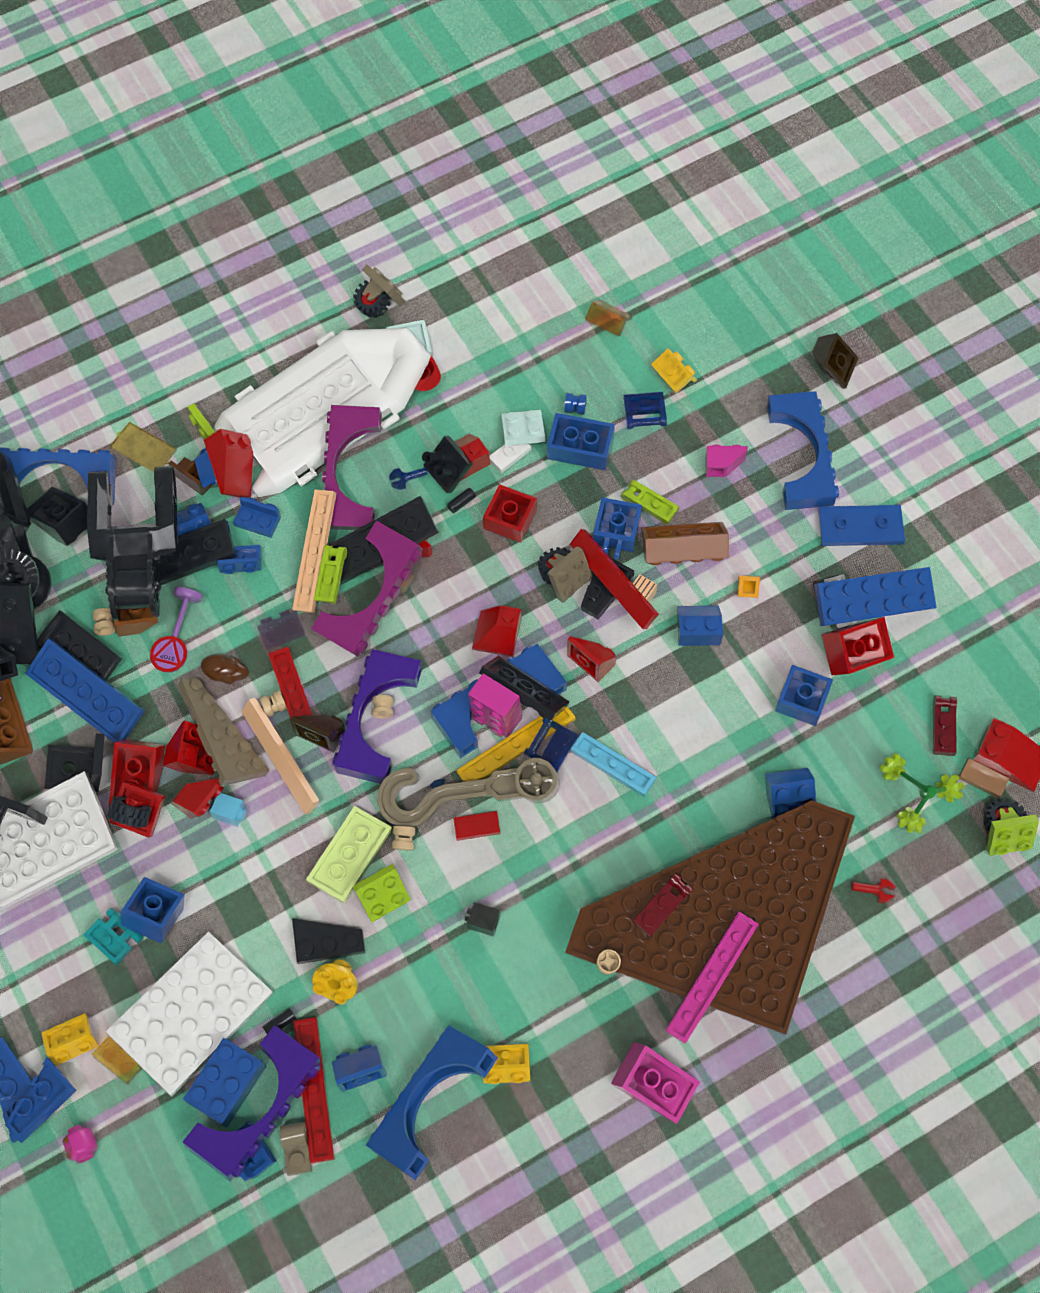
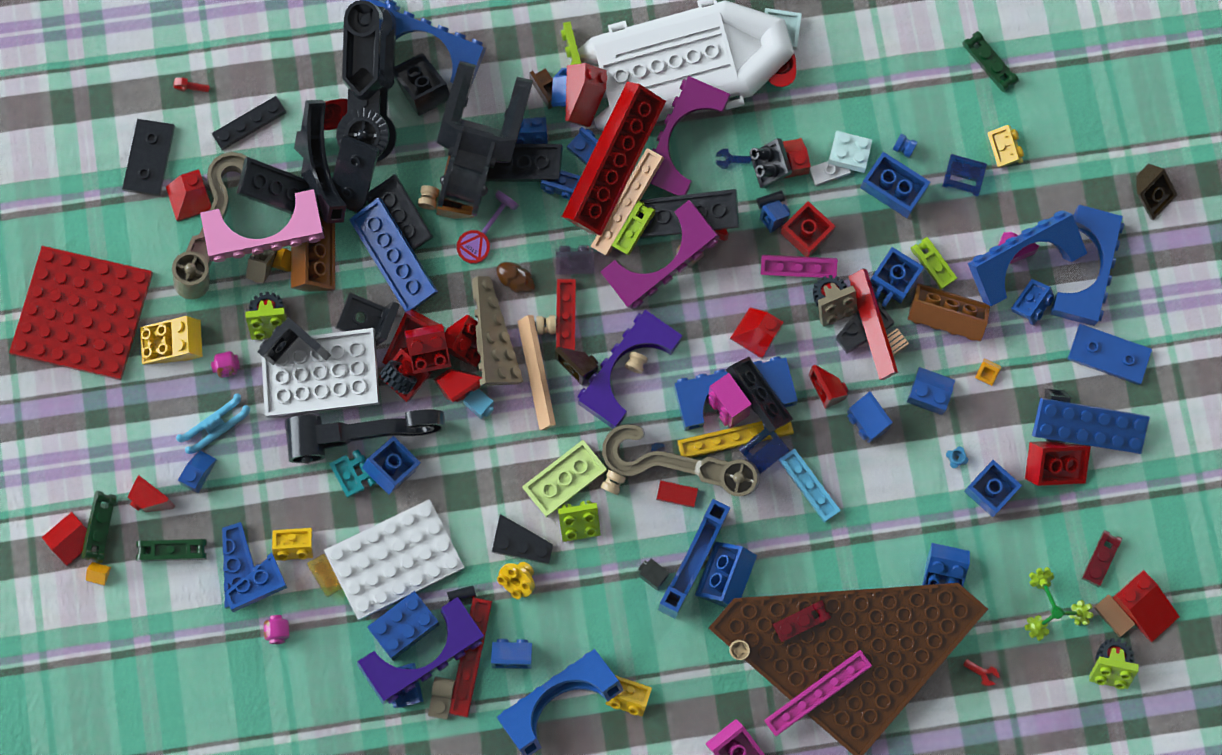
camera: 15 degrees right, 10 degrees up
(51, 913) = (309, 437): none -> black piece
(142, 447) = (512, 44): clear yellow piece -> none
(151, 770) = (427, 348): none -> red slope
(284, 513) = (613, 158): none -> red brick
(470, 512) = (774, 215): none -> blue slope
(514, 552) = (798, 266): none -> dark pink plate
(521, 888) = (694, 559): none -> blue arch
(561, 888) = (726, 573): none -> blue slope
(607, 317) = (968, 70): clear orange panel -> none
(626, 302) = (990, 61): none -> dark green plate
(647, 671) = (869, 418): none -> blue slope
(709, 483) = (991, 268): none -> blue arch
(753, 673) = (959, 451): none -> dark azure plate
(764, 501) = (1033, 301): none -> blue bracket

